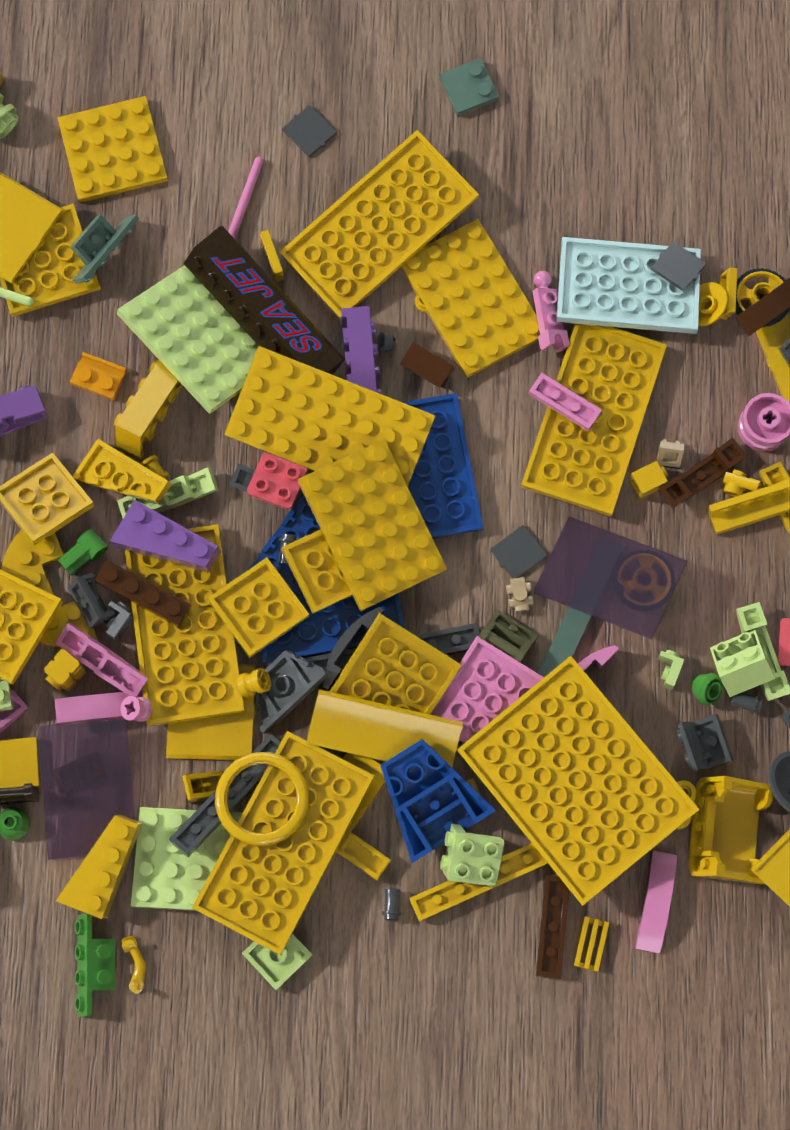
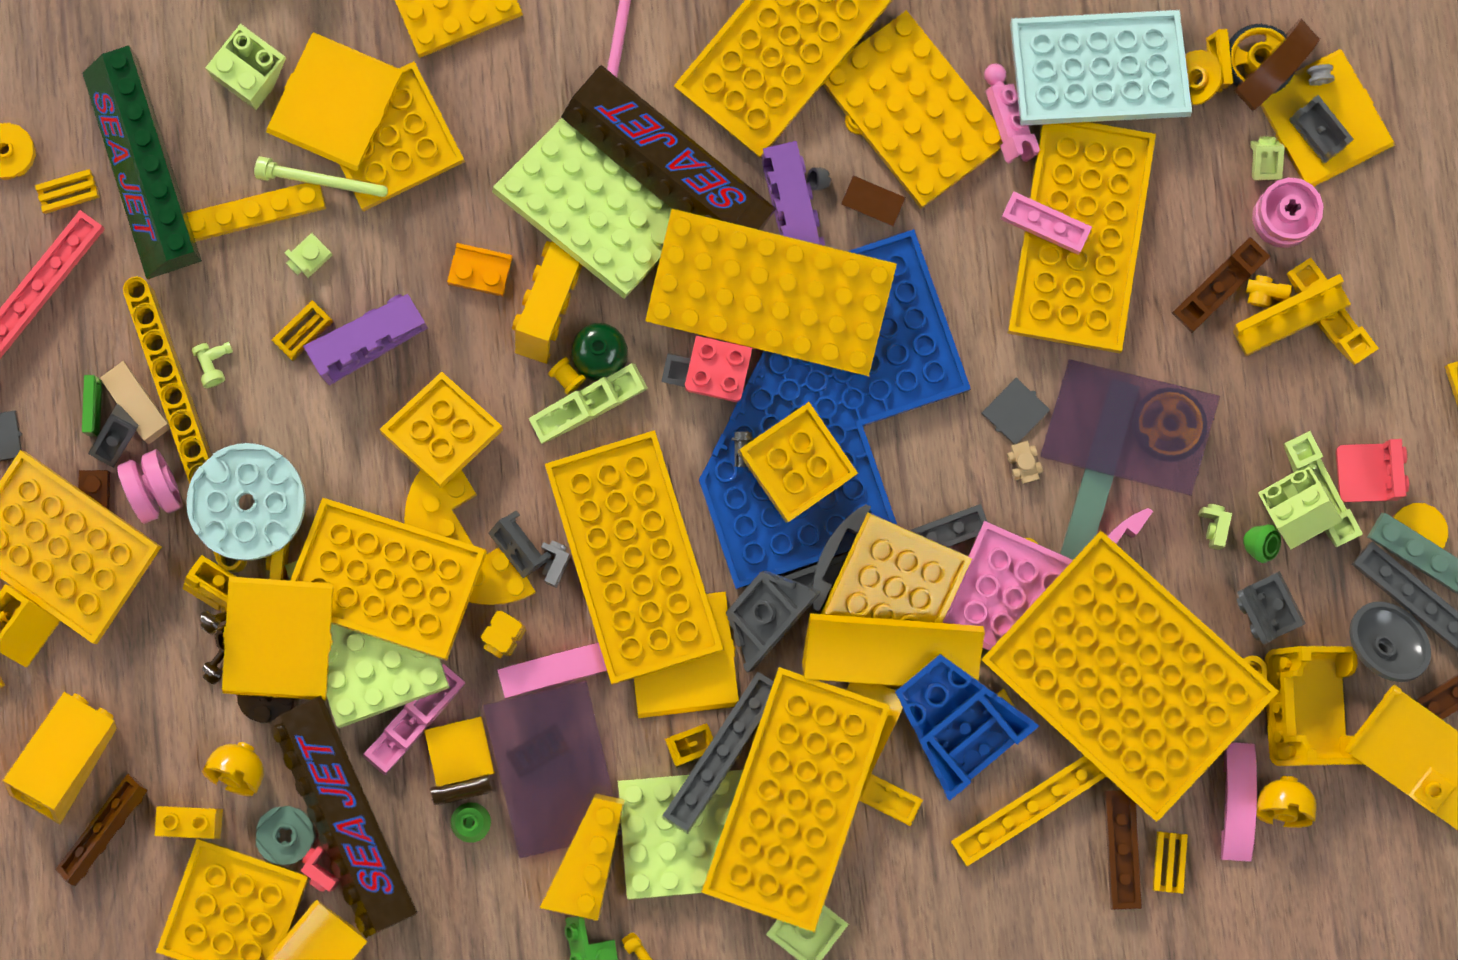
camera: 10 degrees left, 5 degrees up
(88, 548) = (503, 481): bright green piece -> none
(97, 243) = (454, 106): sand green bracket -> none
(101, 660) = (545, 615): bright pink slope -> none
(116, 472) = (523, 385): yellow wing -> none
(142, 706) = (601, 661): bright pink wheel -> none
(143, 593) = (580, 527): reddish brown plate -> none
(157, 536) = (591, 458): medium lavender wedge -> none
(183, 454) = (599, 351): none -> dark green cylinder
(250, 683) = (731, 614): yellow wheel -> none
(258, 607) = (720, 524): yellow plate -> none
(271, 255) = (665, 92): yellow tile -> none
(288, 828) = (757, 800): yellow wedge -> none
(372, 524) = (841, 406): yellow plate -> none
(392, 899) = (931, 851): dark grey pin -> none
(471, 857) = (1017, 783): yellowish green bracket -> none
(504, 627) = (1022, 508): olive plate -> none
(648, 479) = (1158, 301): yellow brick -> none
(670, 453) = (1178, 266): tan tile -> none
(678, 266) = (1156, 36): dark grey piece -> none
(696, 907) = (1287, 802): none -> yellow cylinder
(747, 702) = (1311, 552): dark grey pin -> none
(756, 377) = (1267, 159): none -> yellowish green bracket

